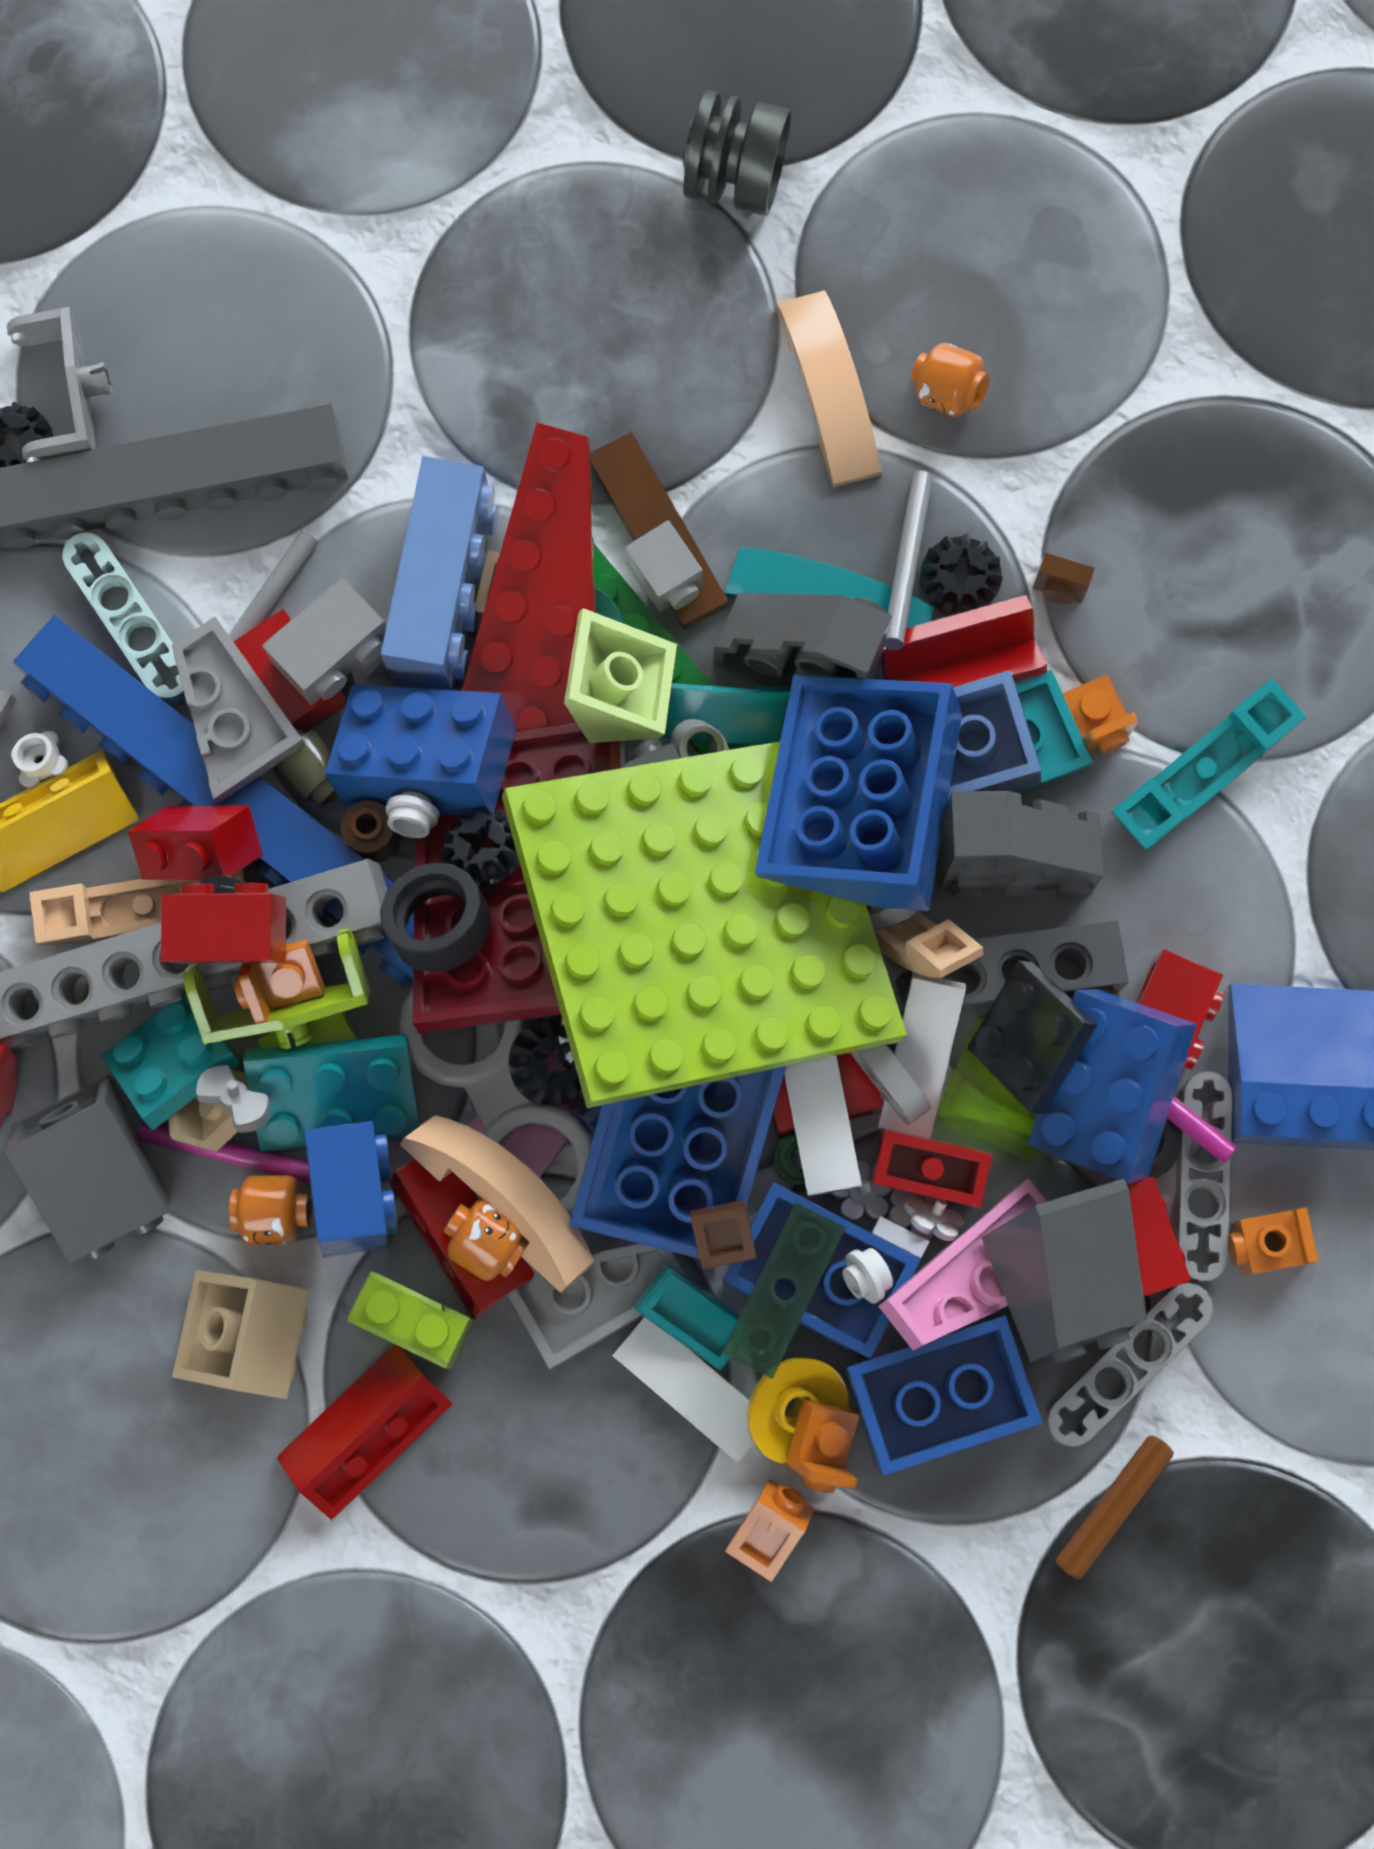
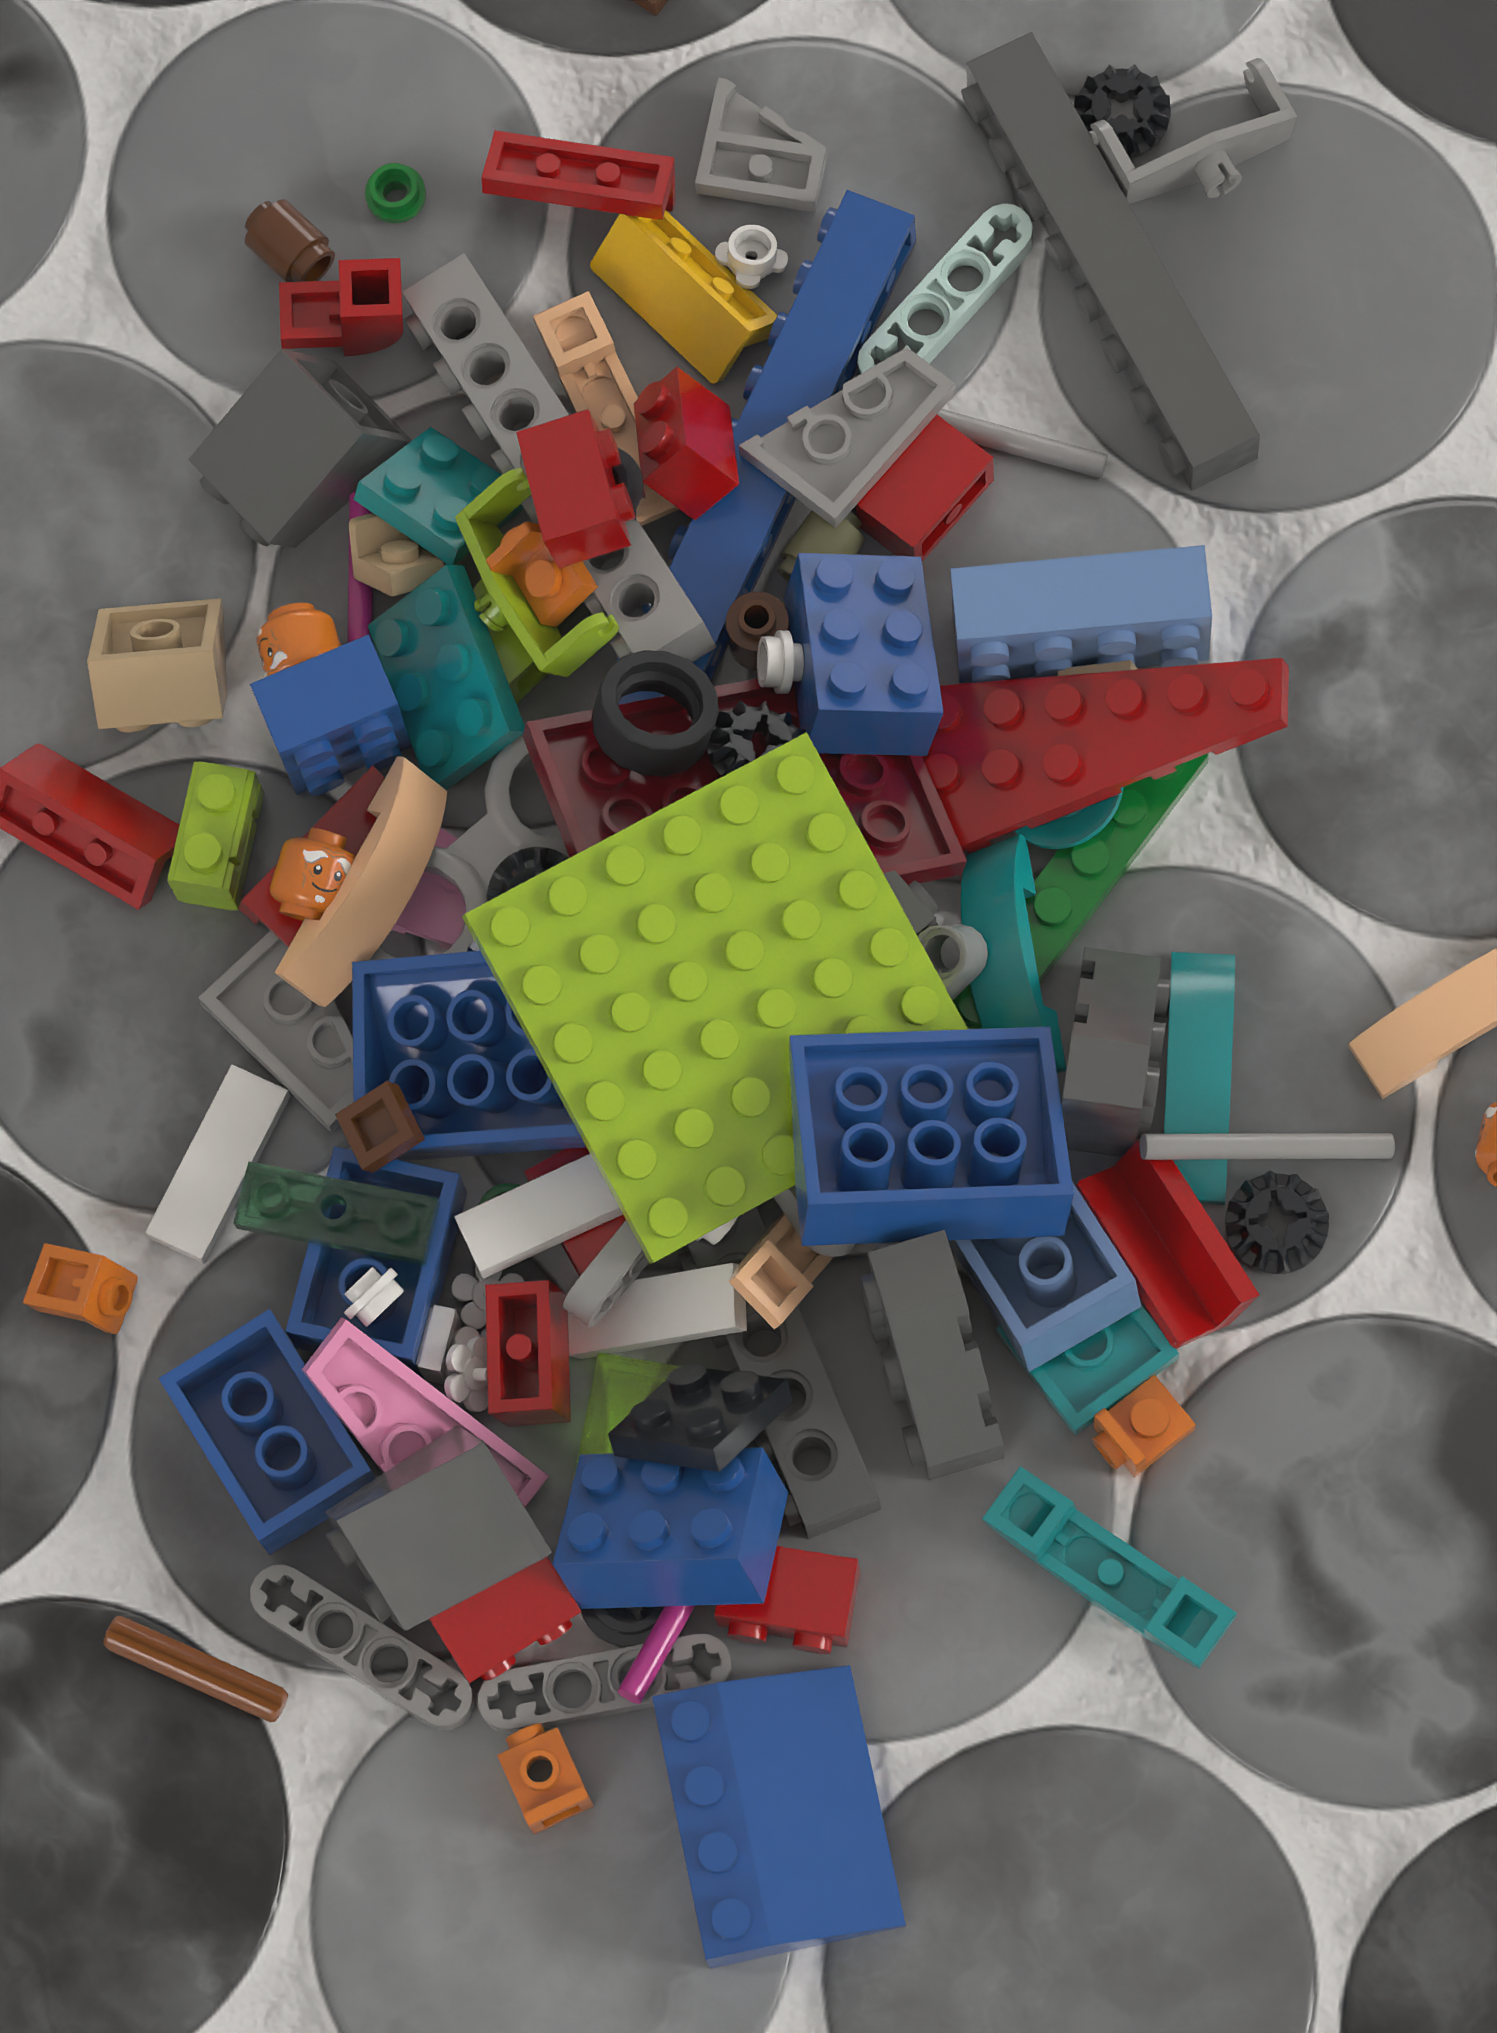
camera: 85 degrees right, 5 degrees down
(247, 1107) = (396, 585): light grey piece -> none
(330, 641) = (957, 512): light grey brick -> none
(618, 680) = (1001, 839): yellowish green slope -> none
(646, 505) = (1227, 854): reddish brown tile -> none
(665, 567) = (1168, 866): light grey brick -> none
(688, 1314) = (298, 1122): teal tile -> none
(795, 1378) = (190, 1284): yellow dish -> none
(823, 1446) = (181, 1318): orange bracket -> none
(1063, 579) = (1298, 1340): reddish brown plate -> none

